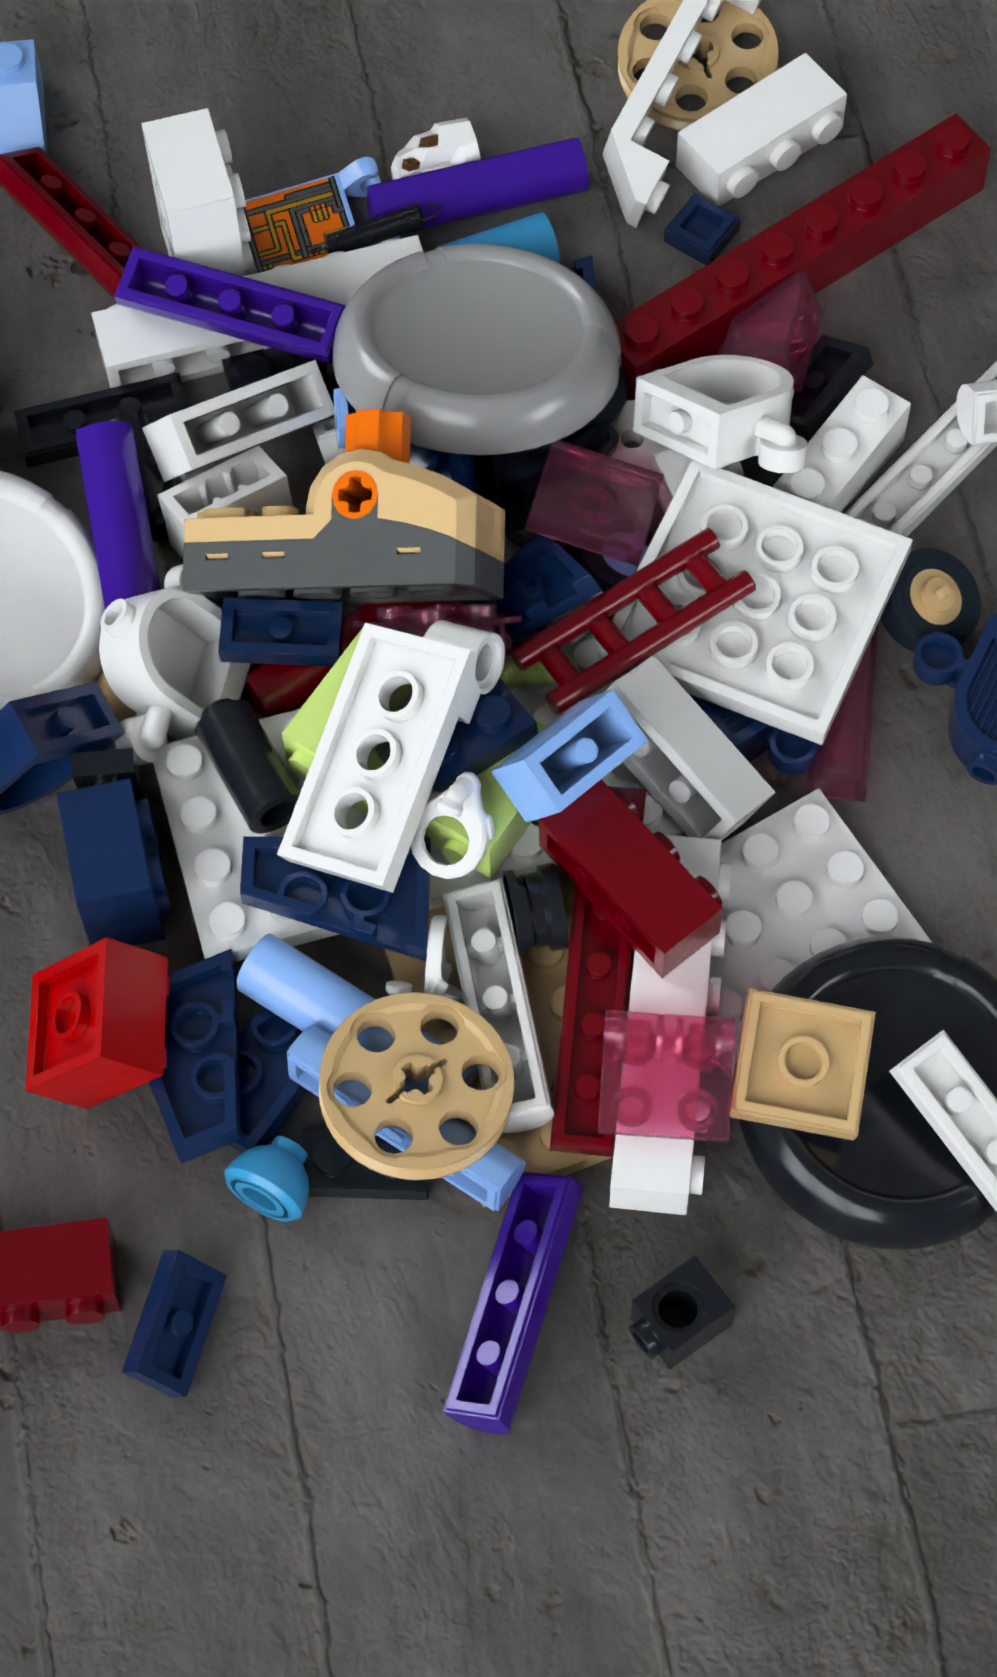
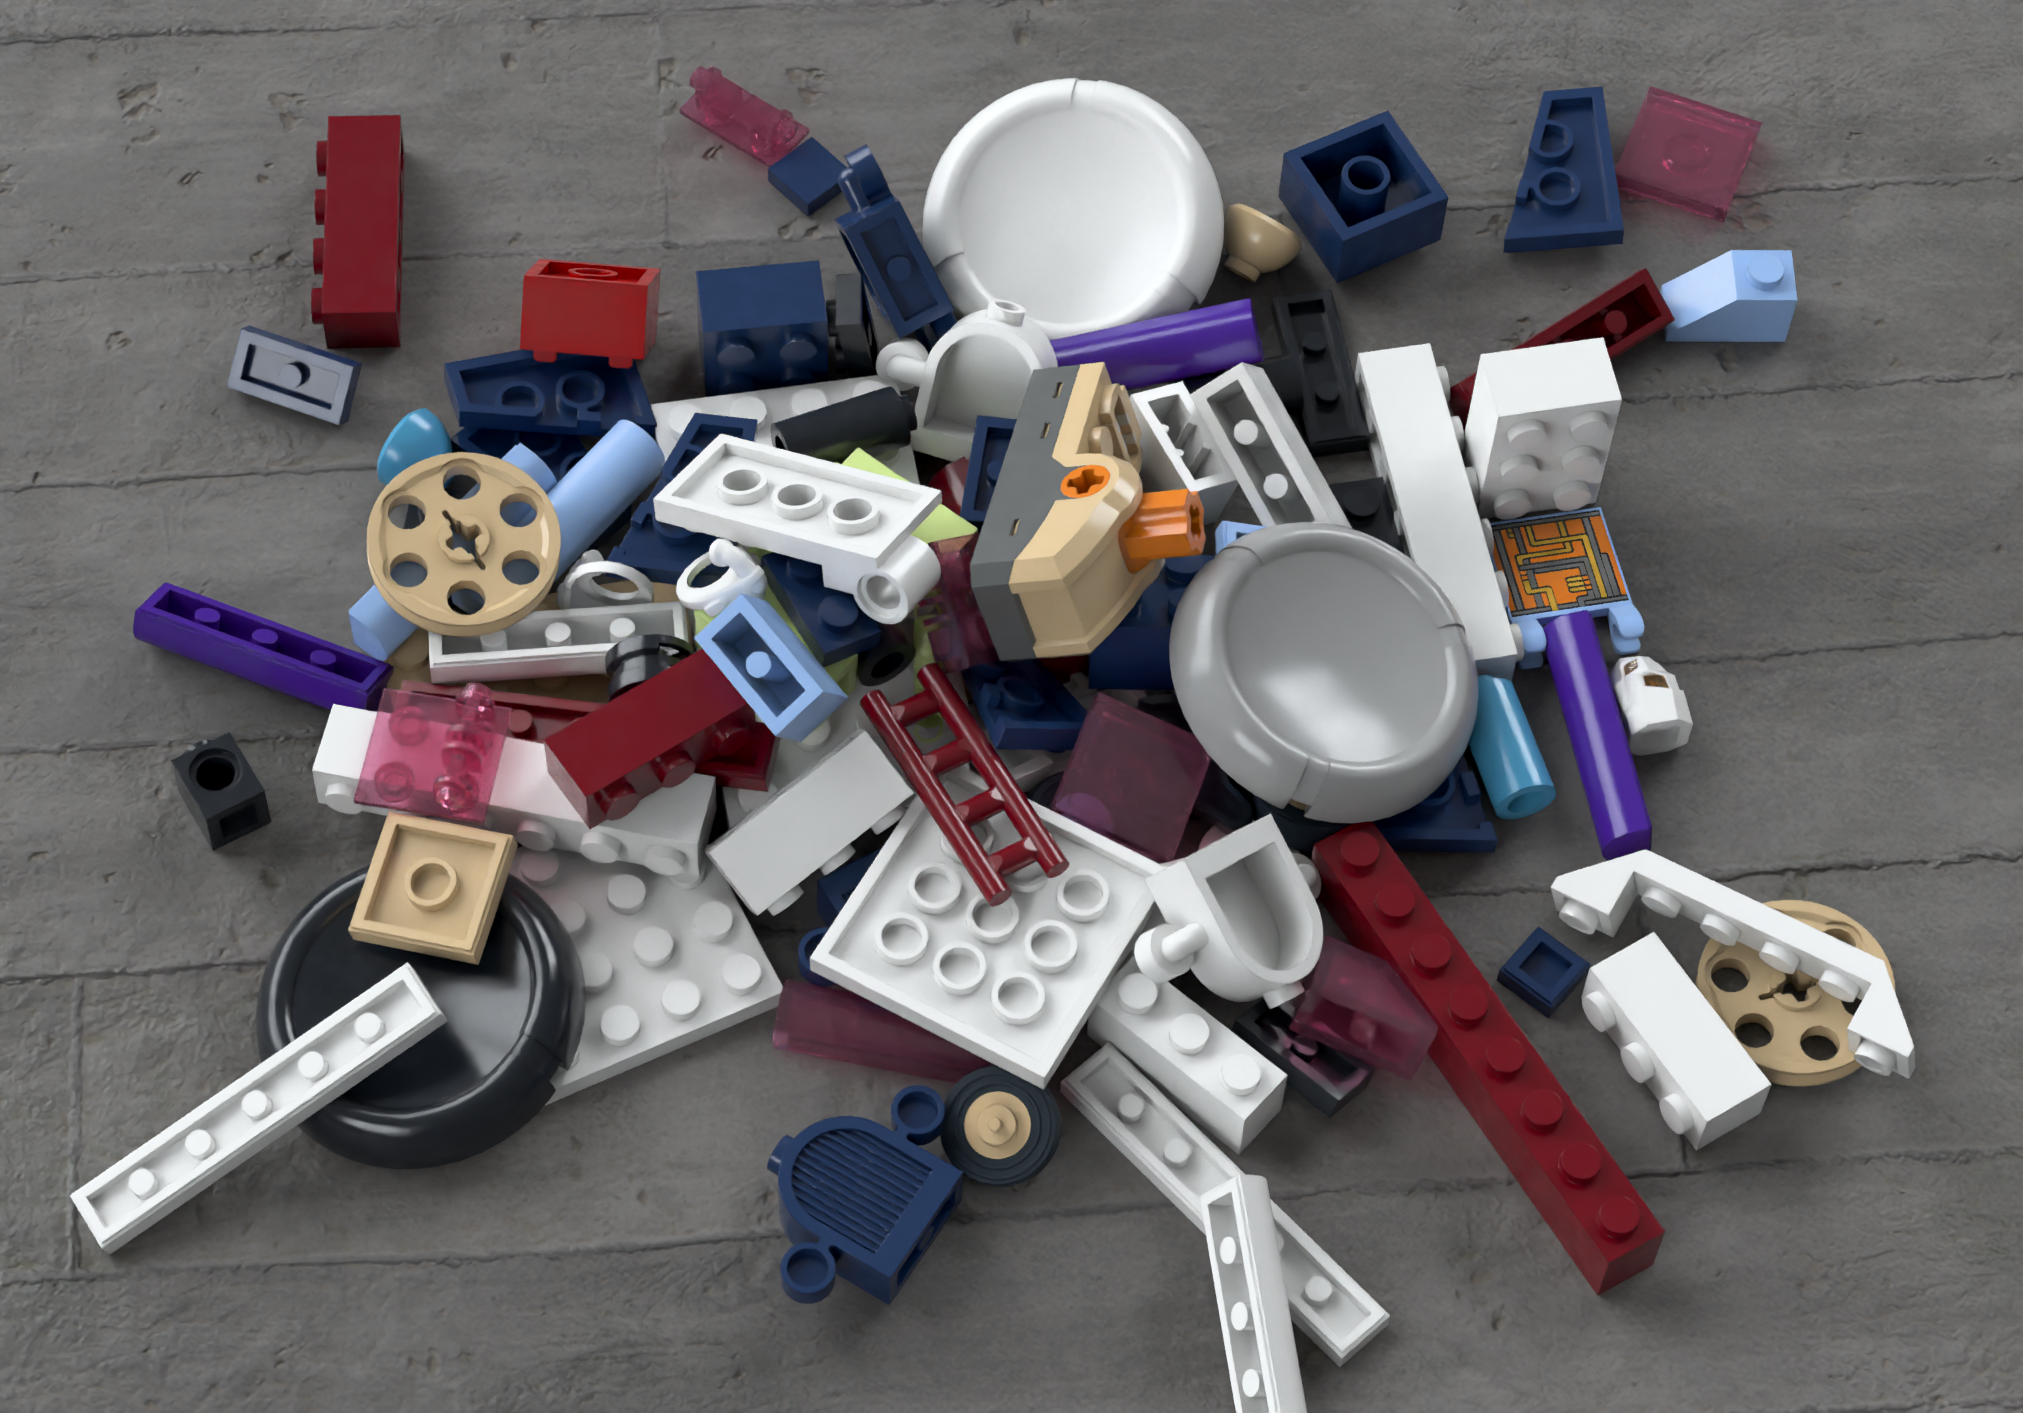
camera: 90 degrees right, 5 degrees down
(229, 304) = (1412, 446): dark purple brick -> none
(376, 229) = (1533, 619): black piece -> none

